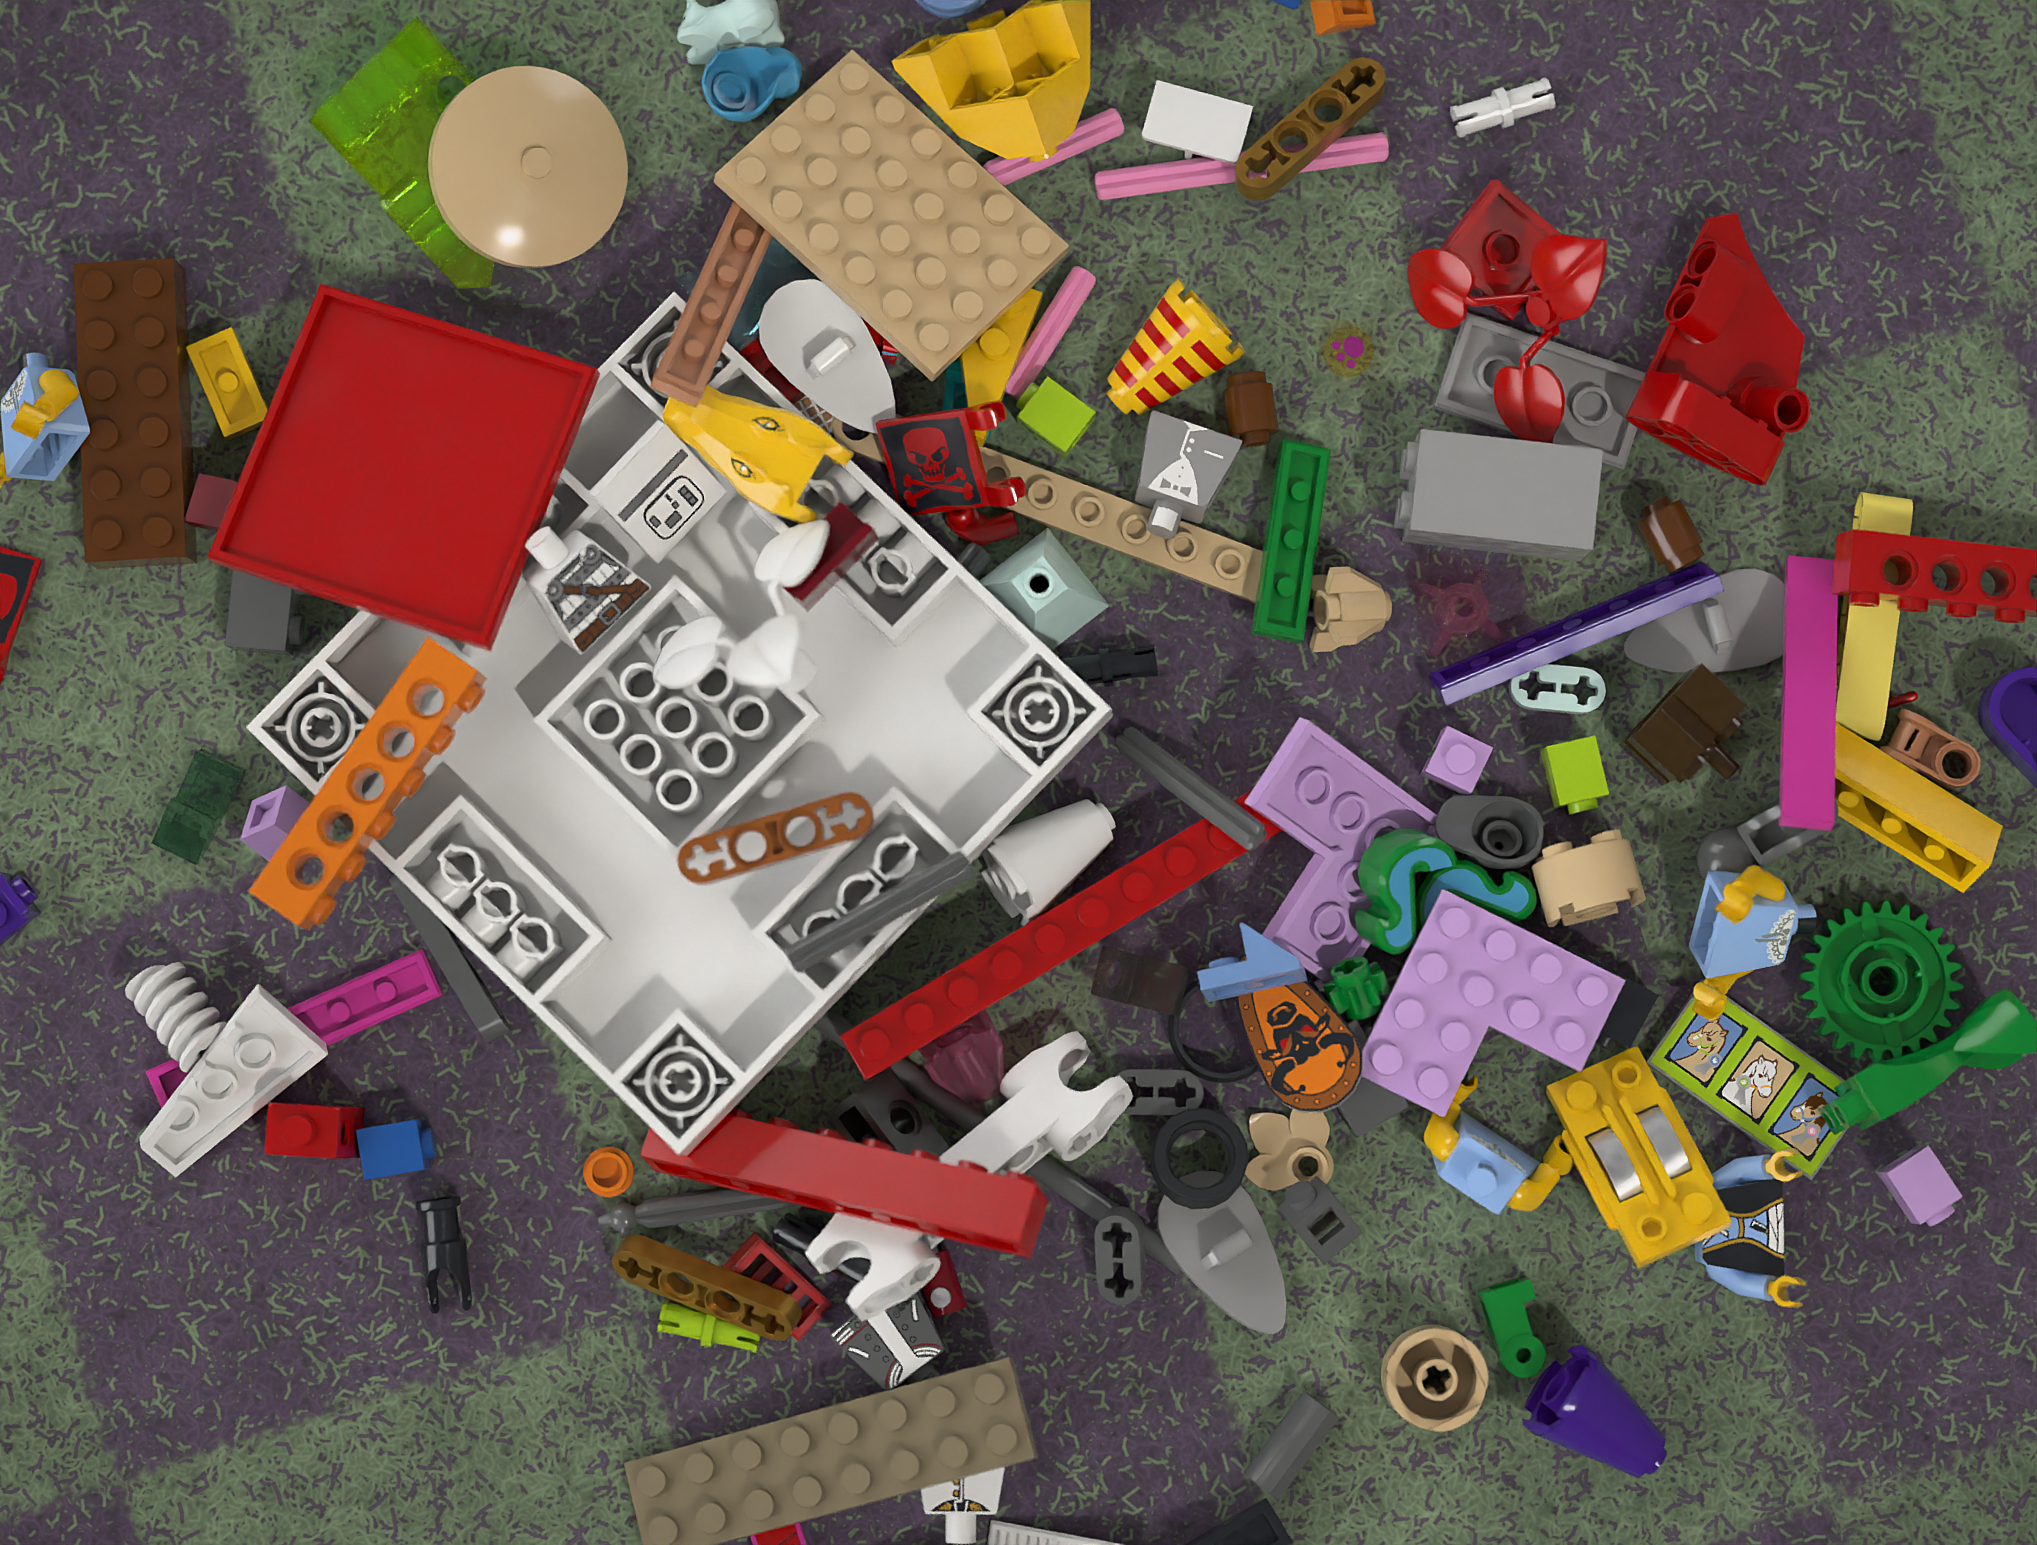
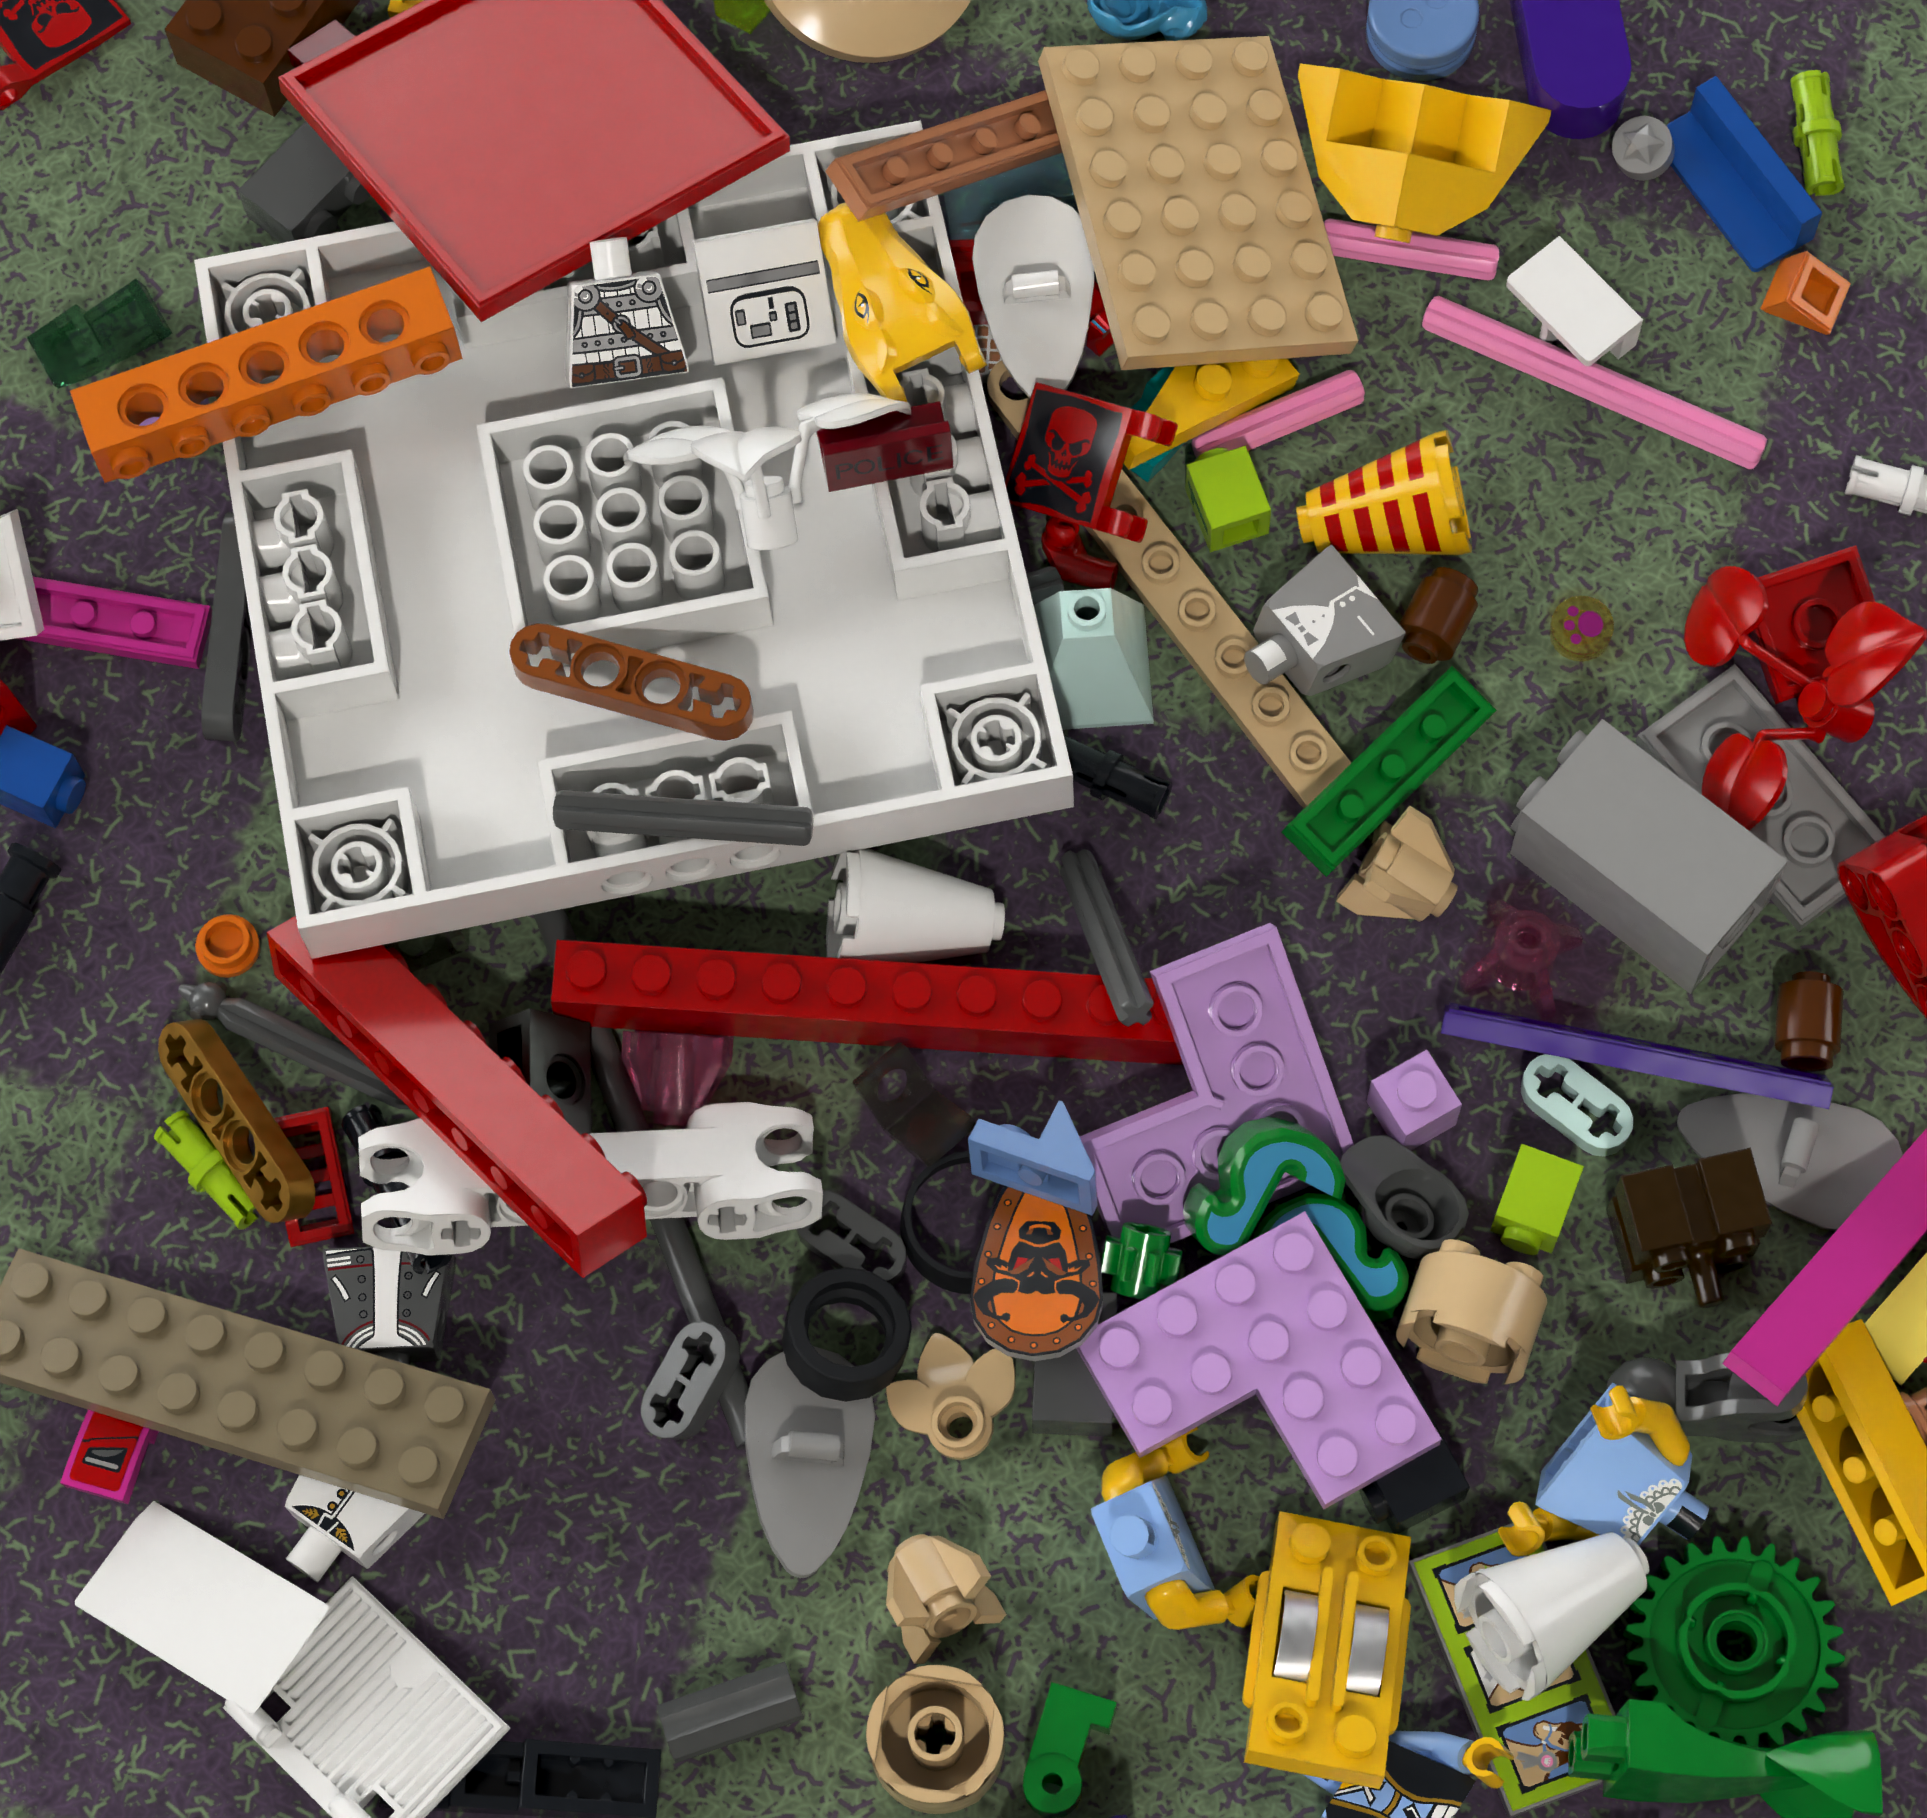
camera: 35 degrees right, 15 degrees down
(944, 1289) = (482, 1282): dark red piece -> none
(1305, 124) = (1618, 384): pearl gold beam -> none
(1314, 1209) = (934, 1499): dark grey brick -> none
(1369, 1284) = (937, 1592): none -> tan brick
(1760, 1039) = (1549, 1607): none -> white cone

